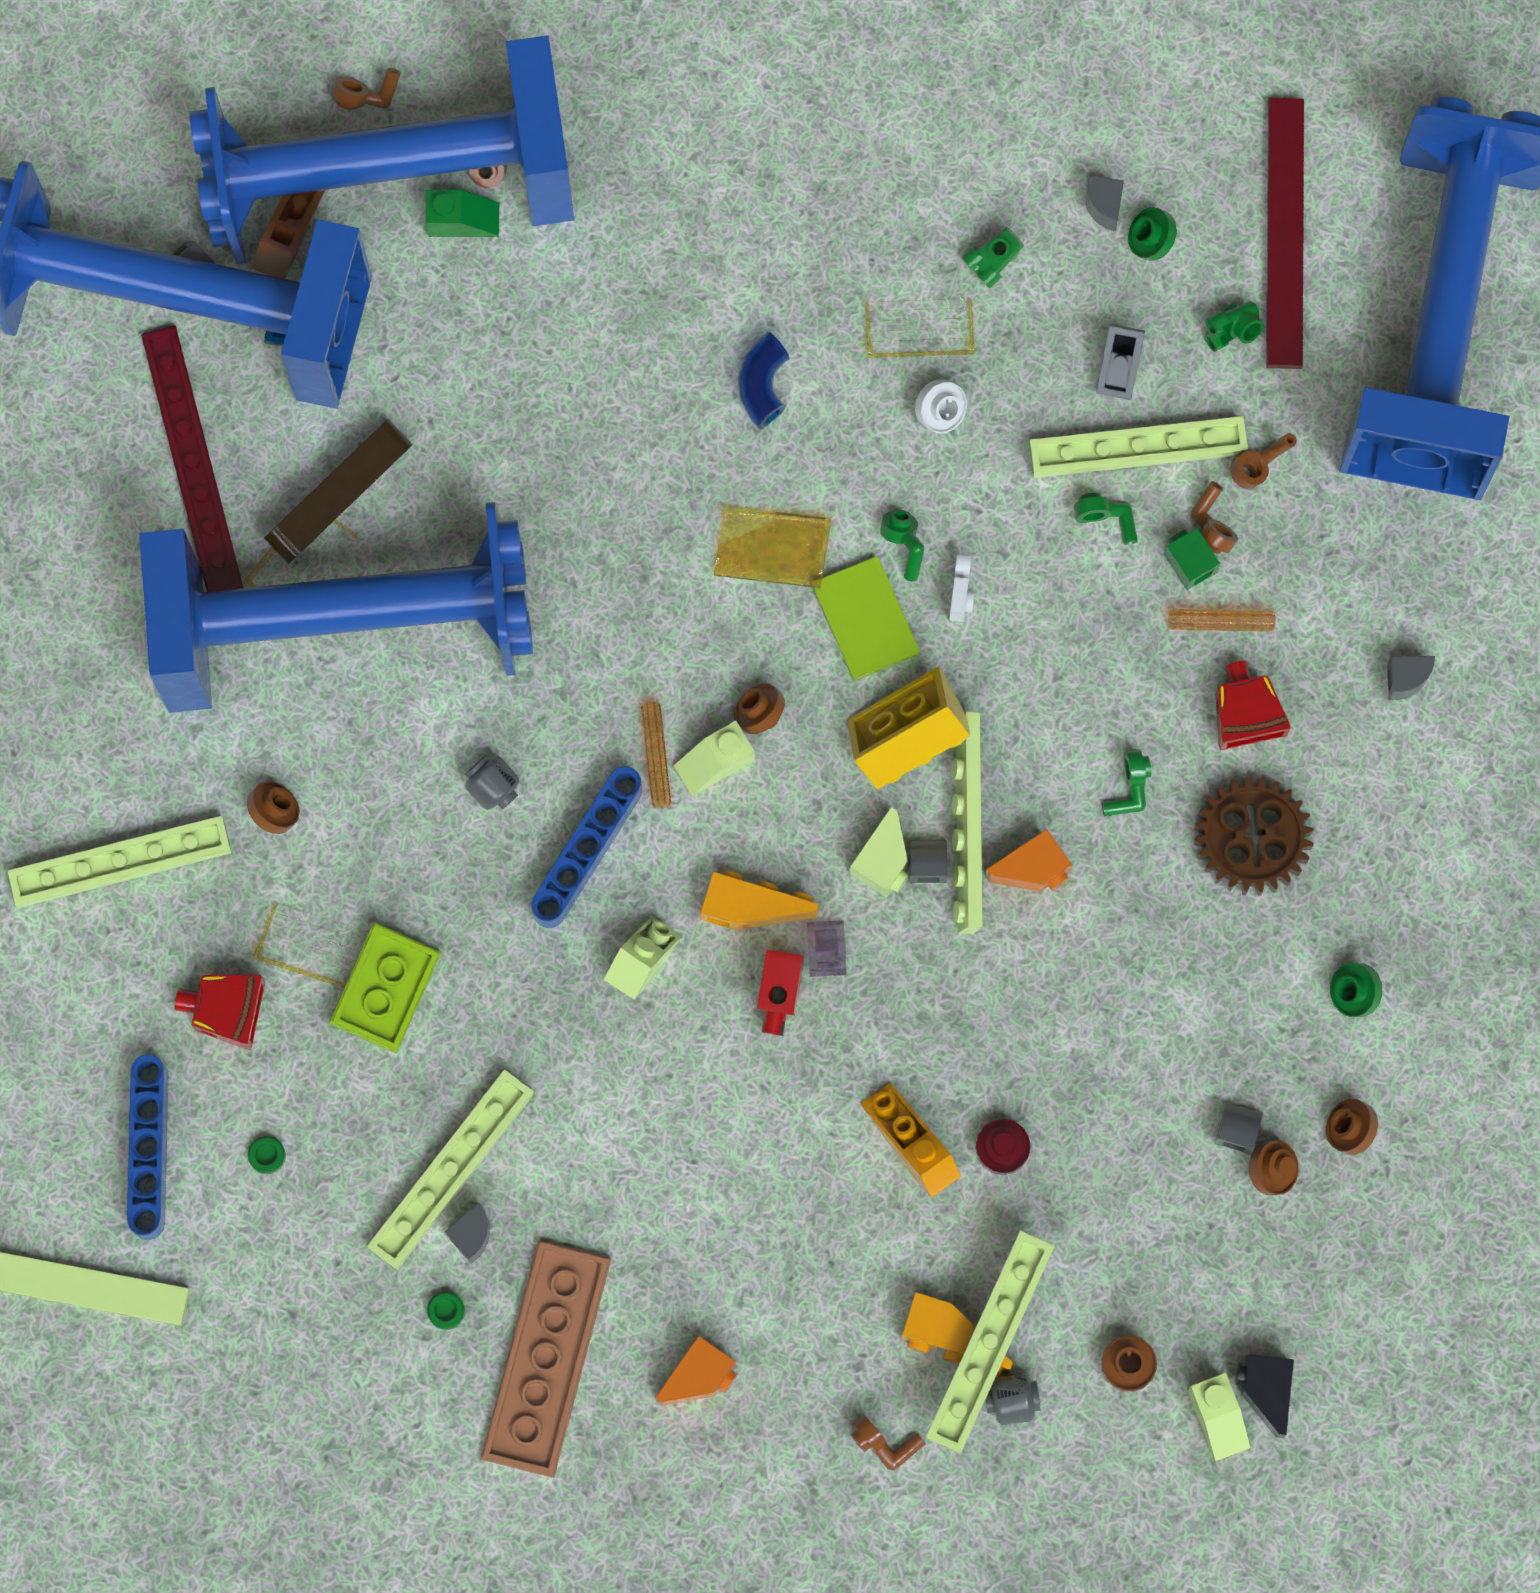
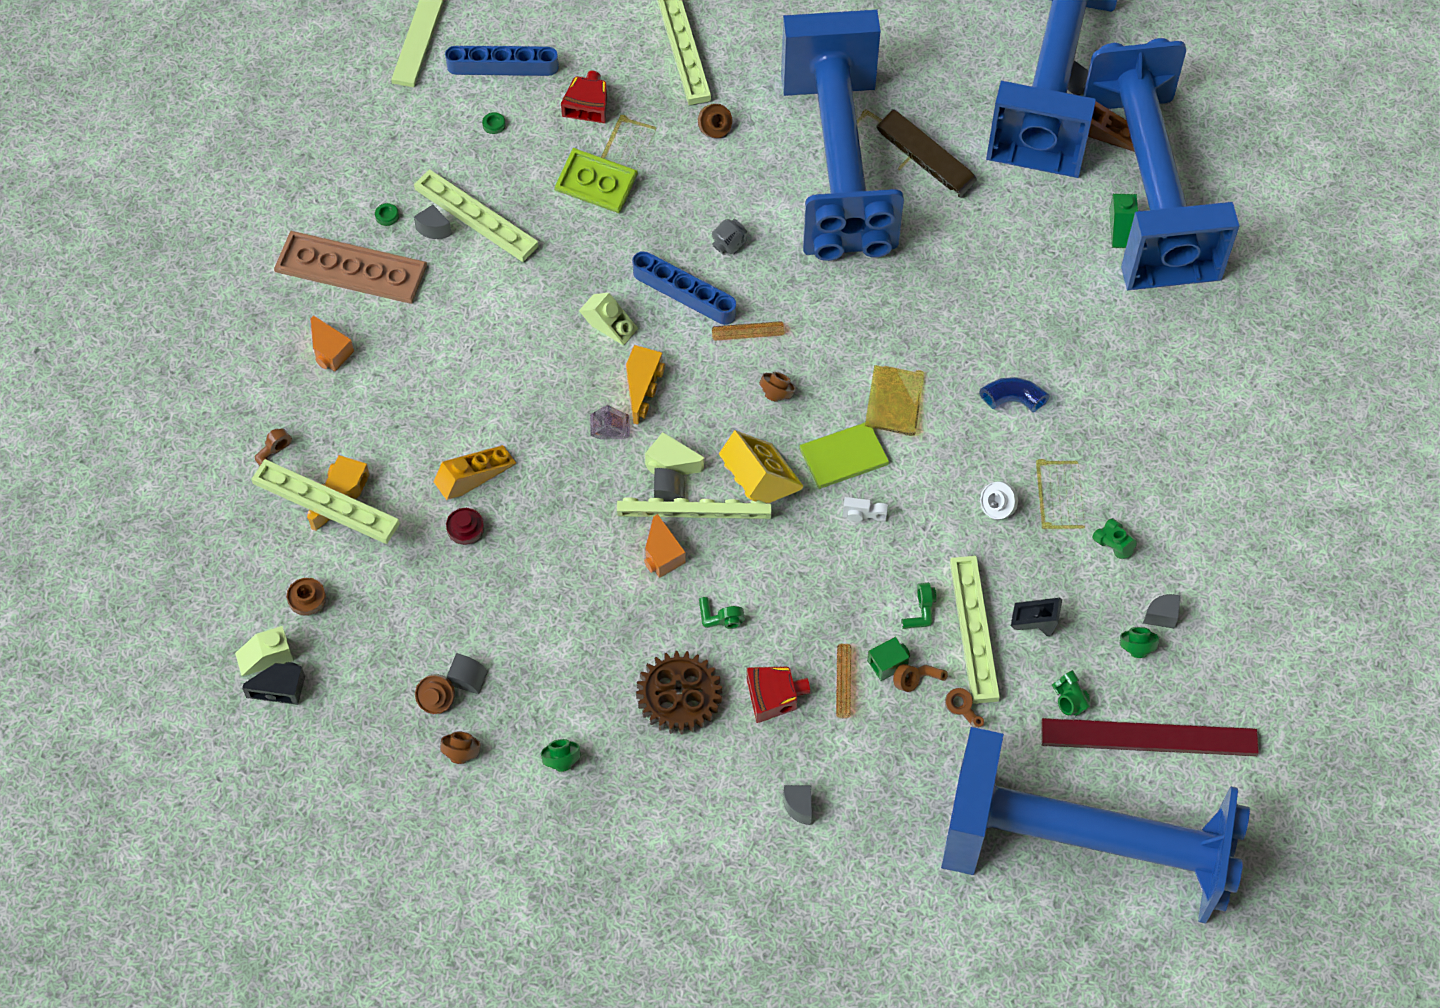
camera: 90 degrees right, 15 degrees down
(192, 460) = (945, 83): dark red tile -> none
(354, 94) = (1207, 163): dark orange plate -> none
(715, 758) = (744, 363): yellowish green slope -> none
(784, 971) = (582, 390): red torso -> none
(901, 528) = (907, 474): green plate -> none
(1013, 1398) = (290, 524): dark grey head -> none

